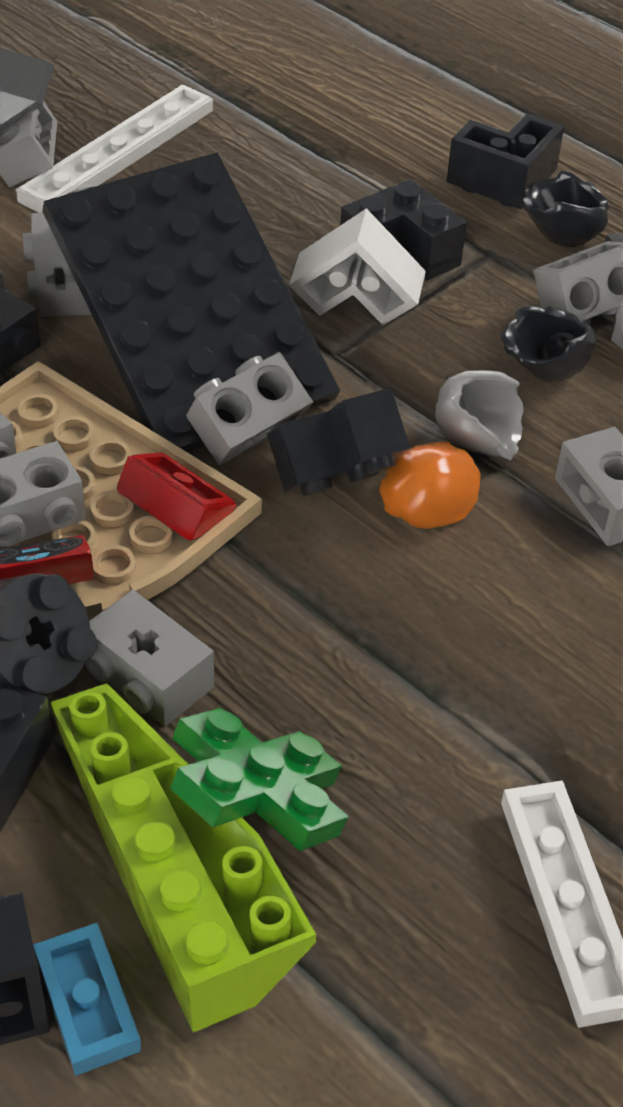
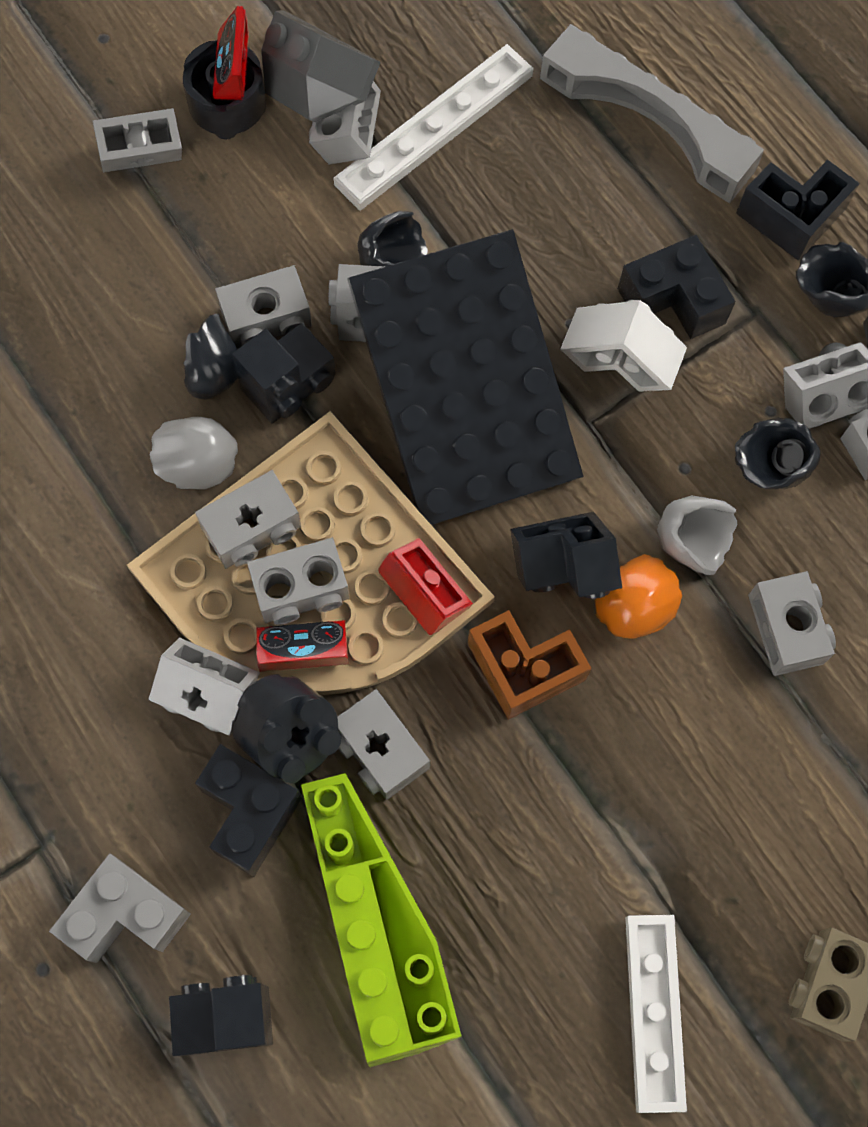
camera: 10 degrees right, 25 degrees up
(87, 999) = (299, 1032): dark azure plate -> none
(247, 776) = (445, 882): green plate -> none
(253, 412) = (501, 515): light grey brick -> none
(309, 558) = (521, 674): none -> dark orange brick
(408, 134) = (590, 70): none -> light grey arch

